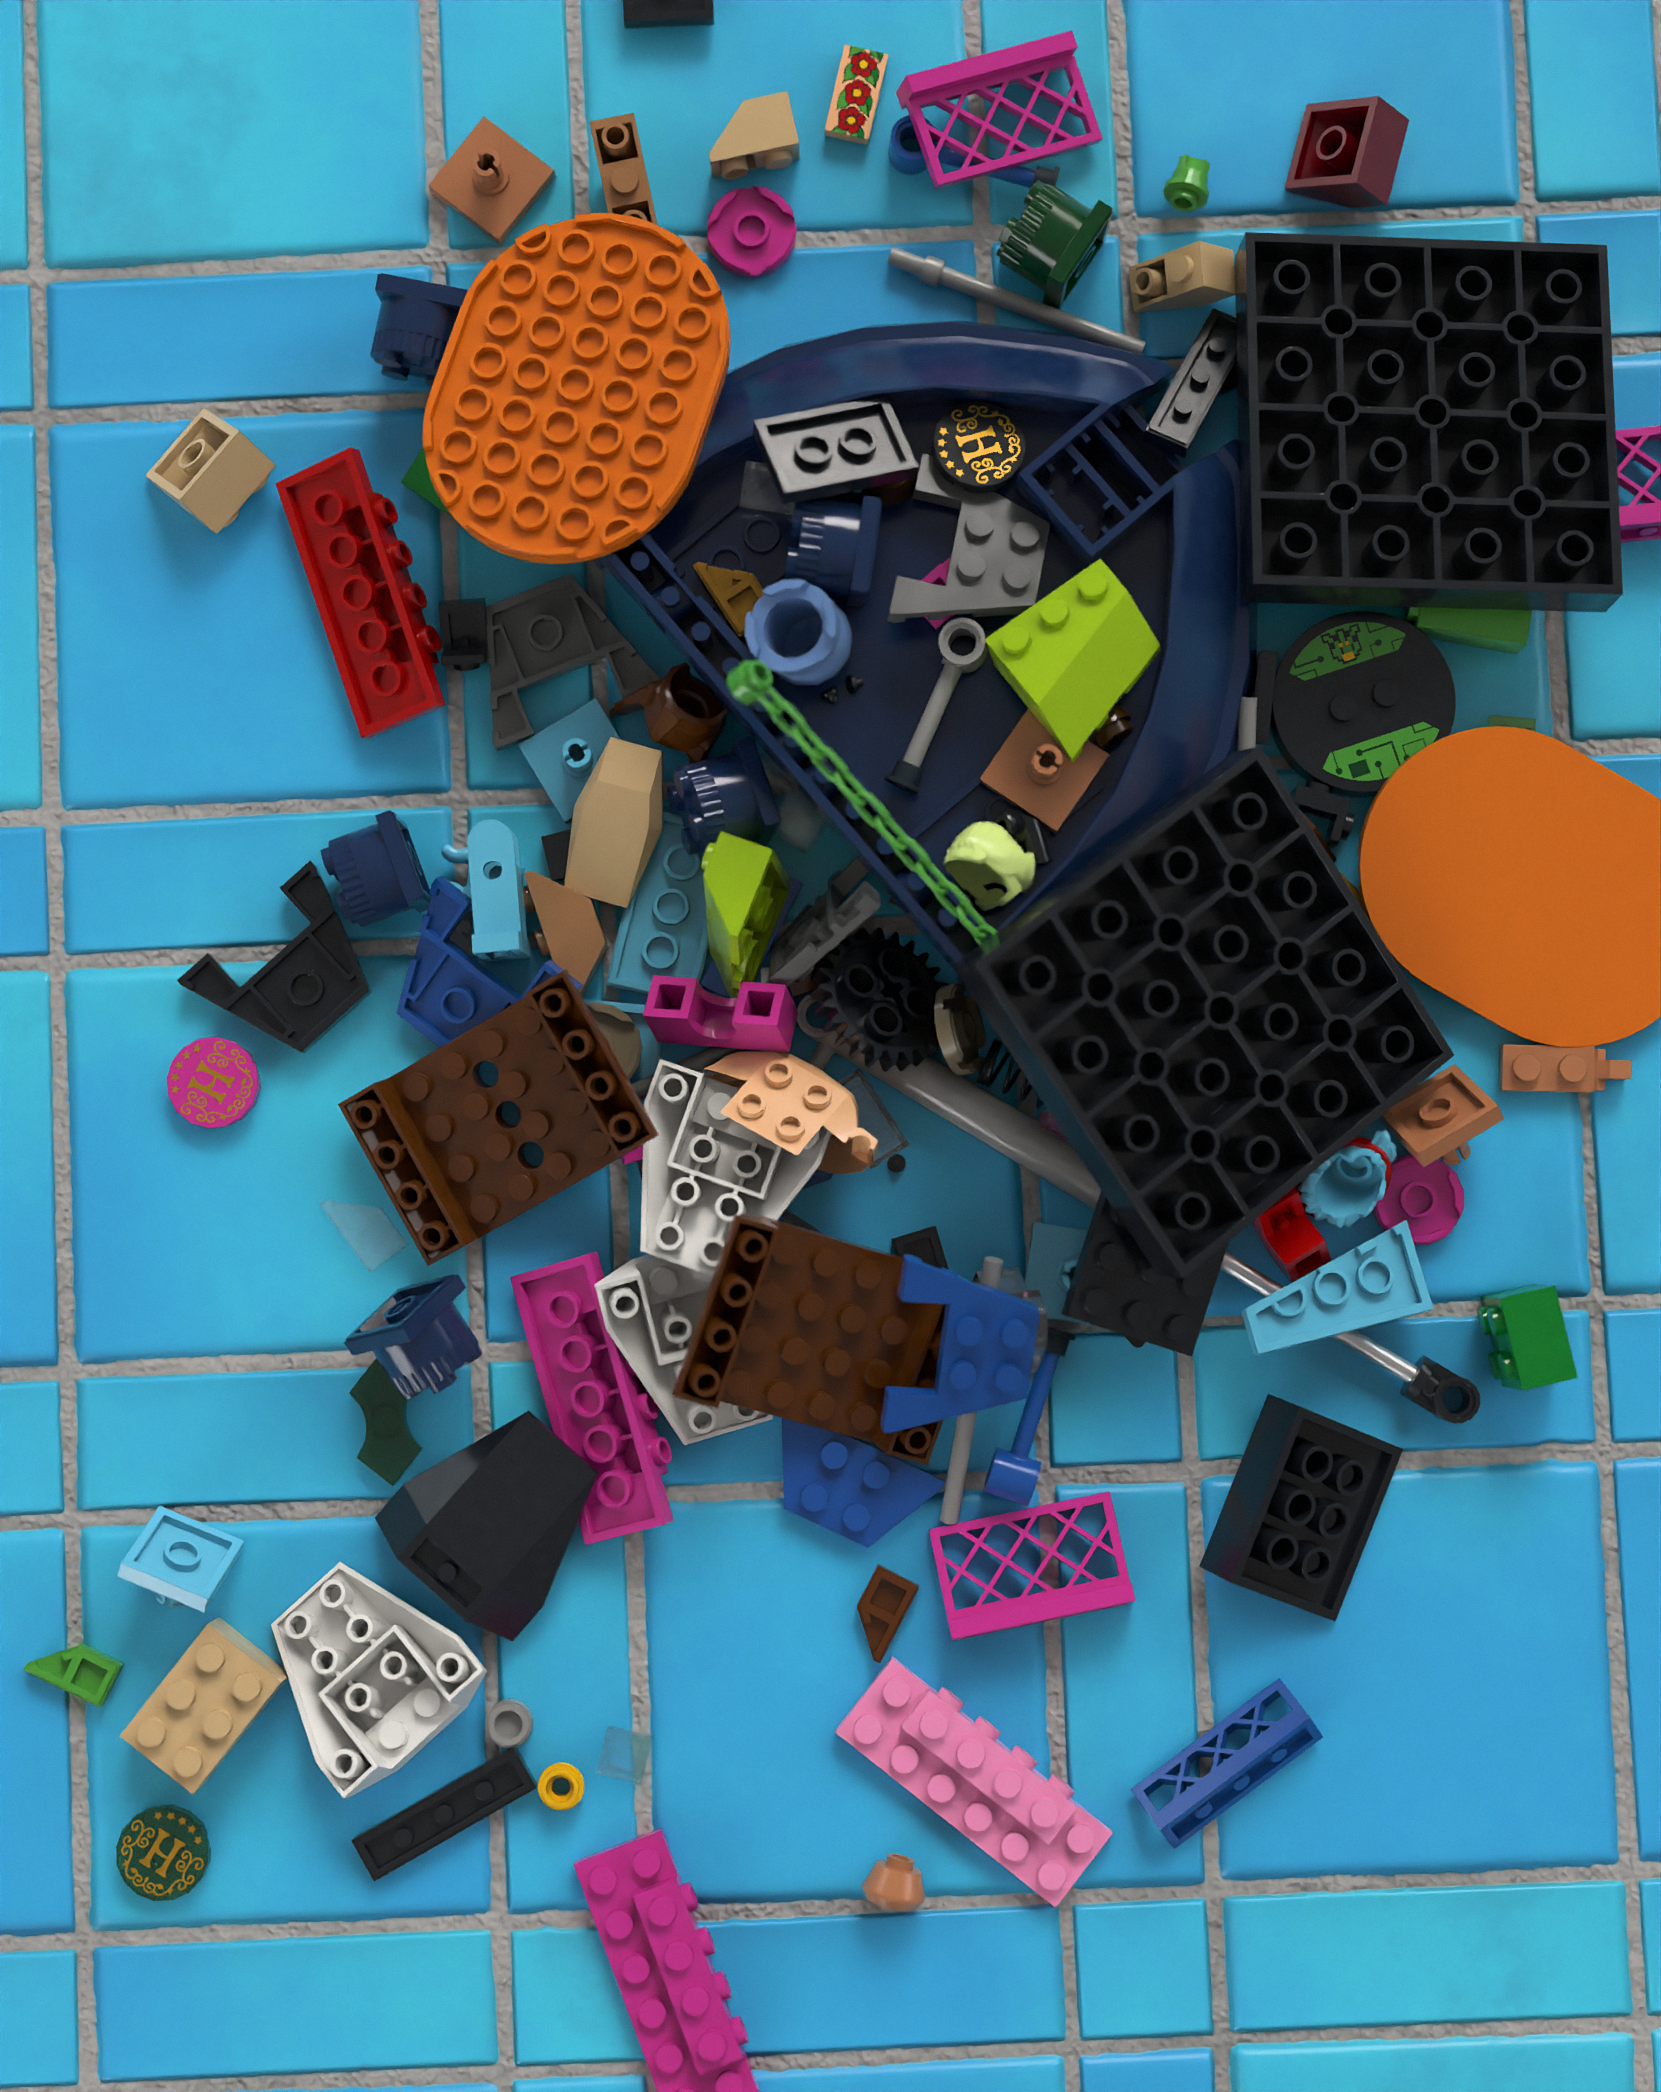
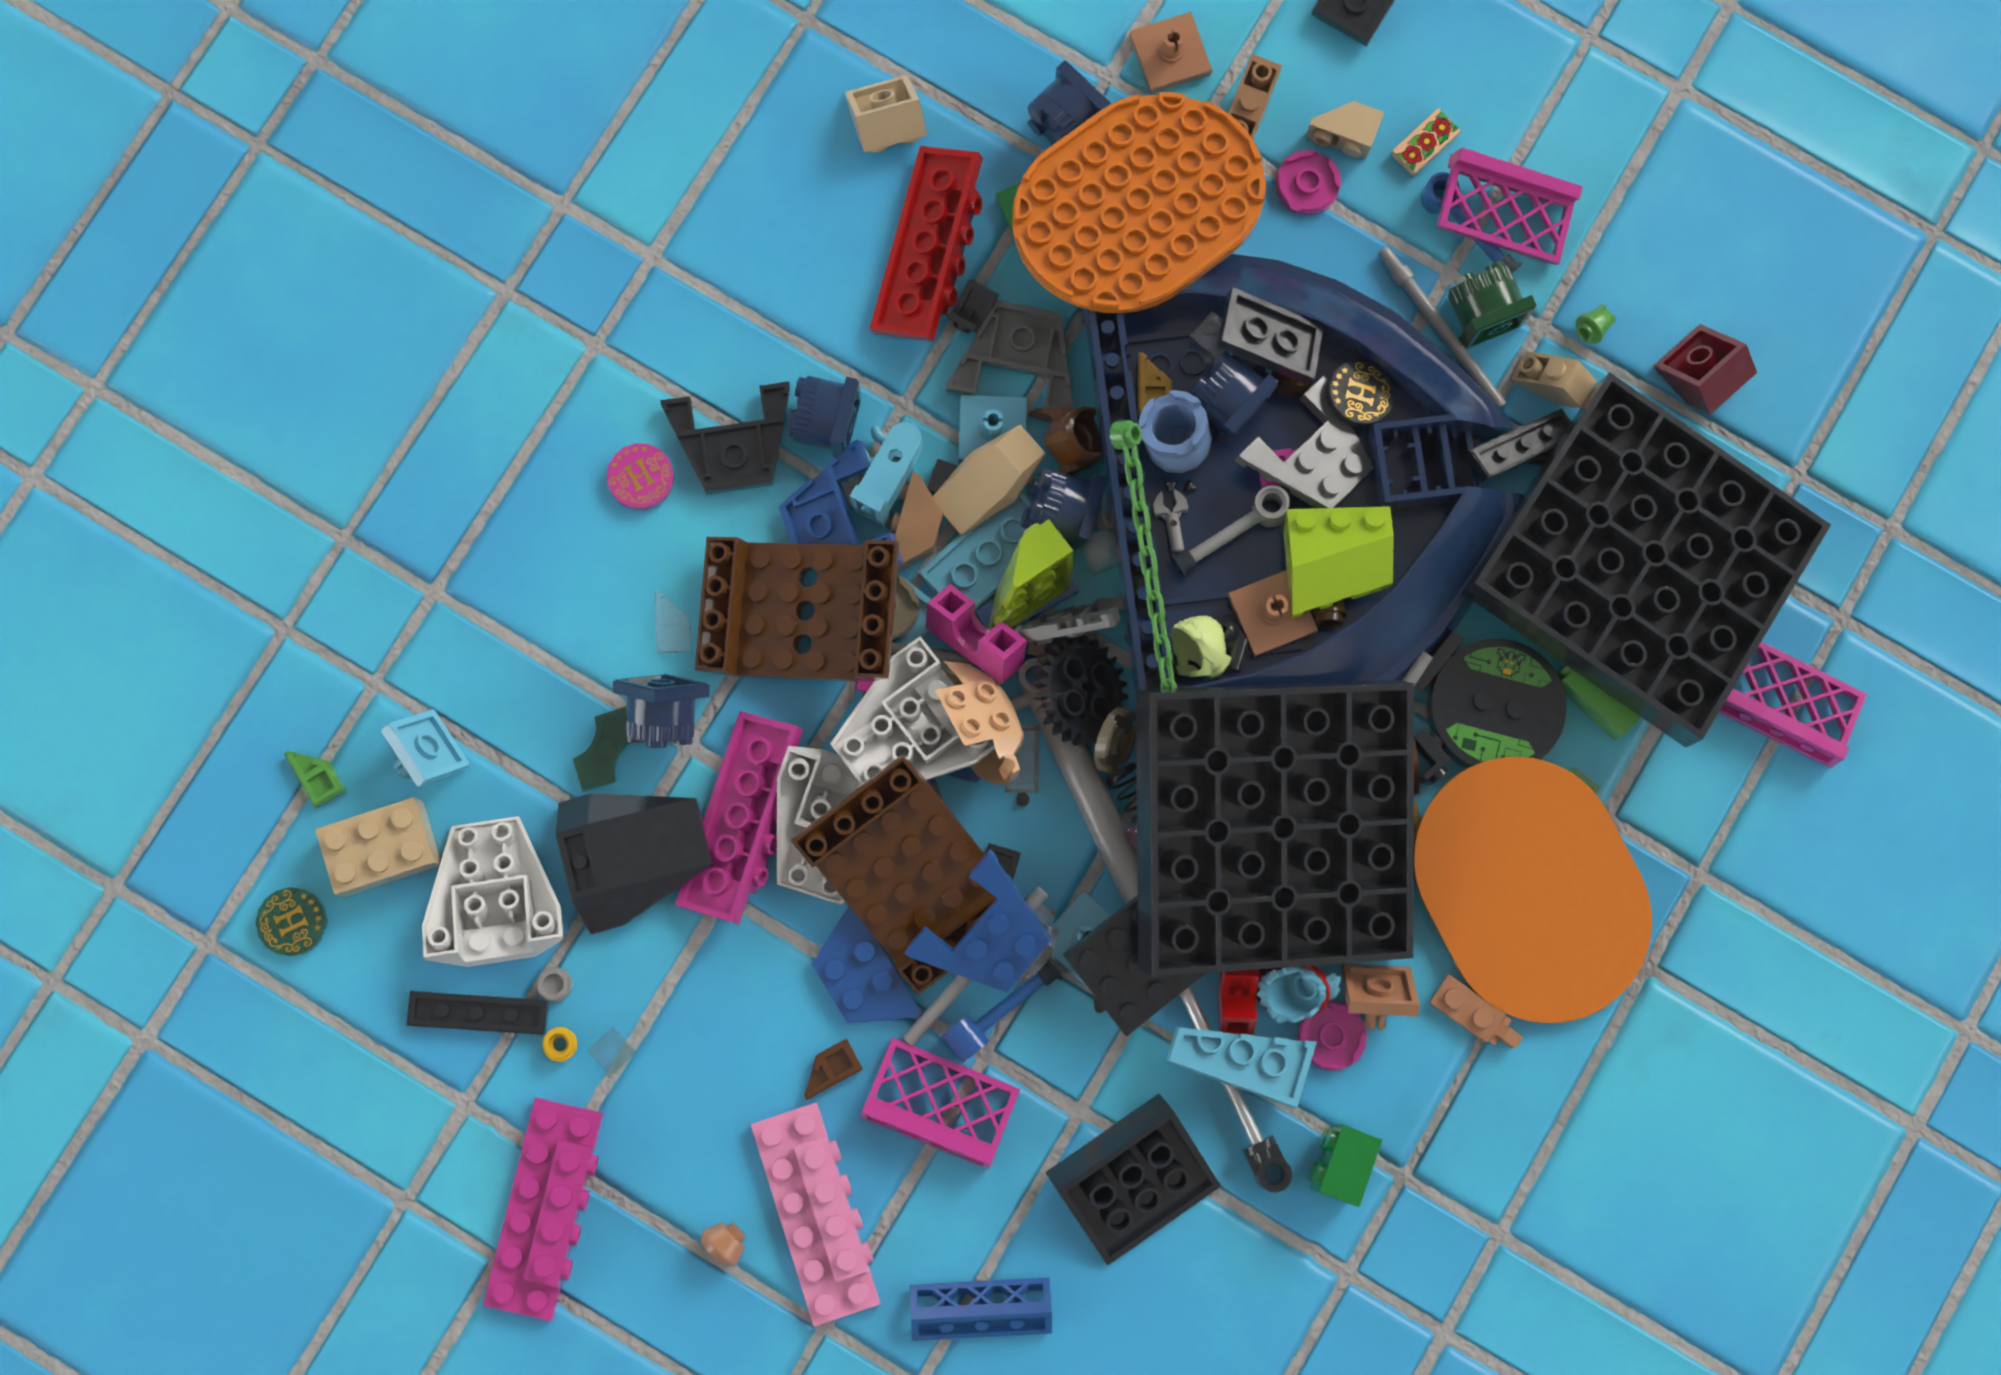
camera: 25 degrees right, 5 degrees down
(859, 734) = (1172, 519): none -> light grey bar

